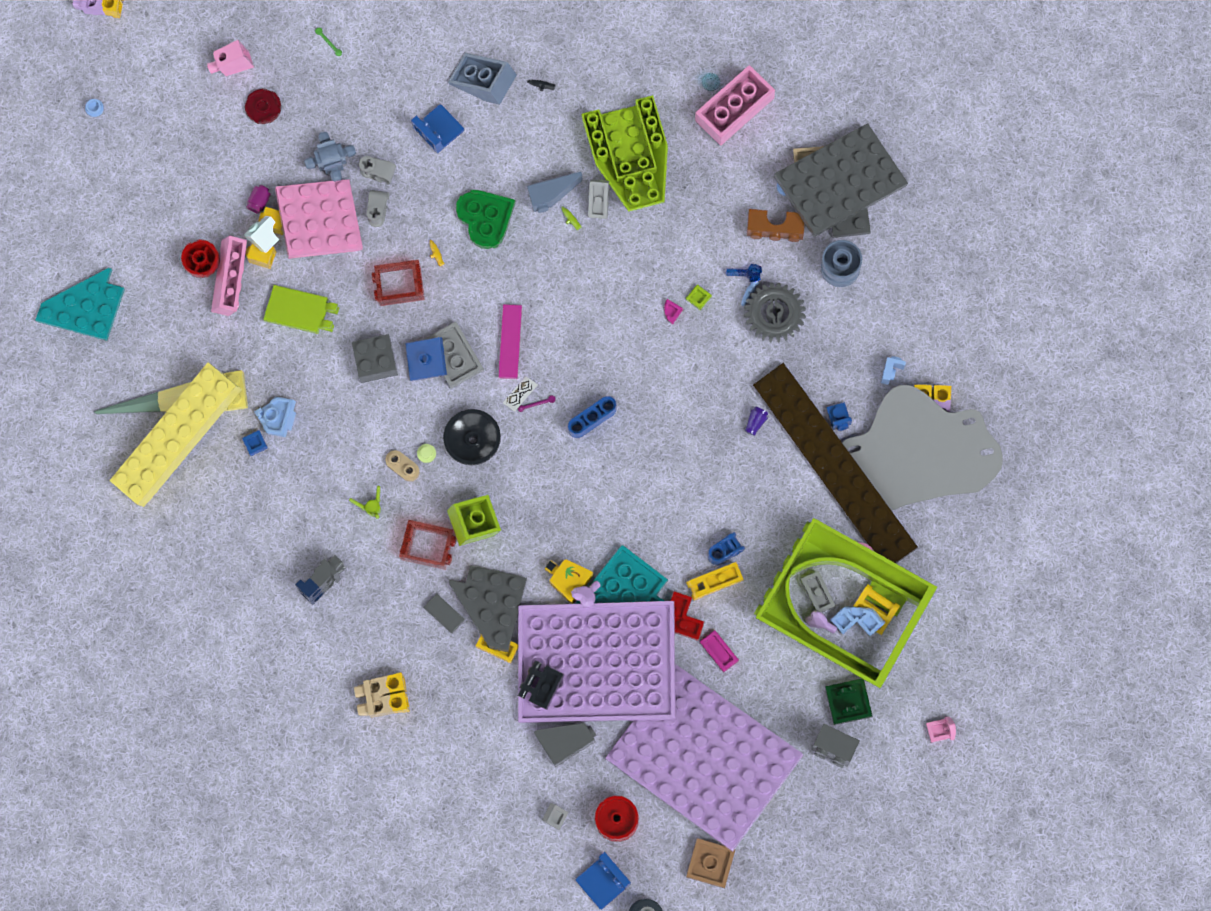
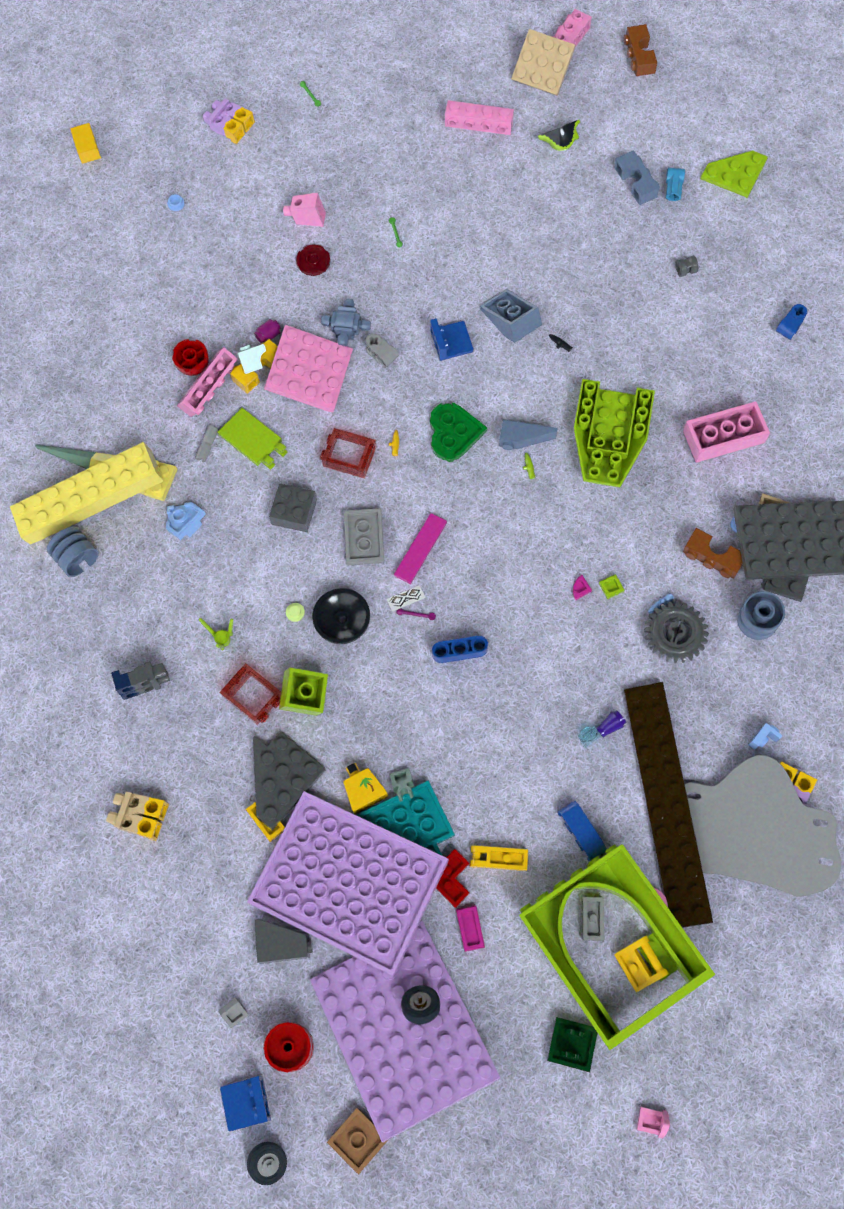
camera: 25 degrees right, 5 degrees down
(84, 308) = (77, 357): teal wing -> none
(190, 492) = (70, 549): none -> sand blue wheel
(255, 443) = (152, 533): blue plate -> none
(258, 331) = (205, 446): none -> light grey piece
(377, 205) = (364, 382): light grey piece -> none
(401, 466) = (268, 612): tan plate -> none
(426, 359) = (337, 528): blue plate -> none
(444, 613) = (234, 765): dark grey tile -> none
(546, 687) = (288, 881): black plate -> none
(586, 594) = (369, 811): lavender rock -> none
(598, 199) = (561, 459): light grey plate -> none
(601, 557) = (402, 783): none -> sand green plate
(710, 729) = (420, 1004): none -> black wheel
(711, 76) = (715, 399): clear light blue plate -> none
(728, 547) = (525, 832): blue piece -> none
(741, 440) = (588, 736): none -> clear light blue plate
(752, 273) = (672, 587): clear blue bar -> none
(775, 523) = (583, 830): none -> blue beam
(819, 620) = (582, 948): lavender rock -> none
(835, 745) = (538, 1085): dark grey brick -> none
(839, 416) = (692, 758): blue bracket -> none
(865, 617) = (629, 967): light blue tile -> none

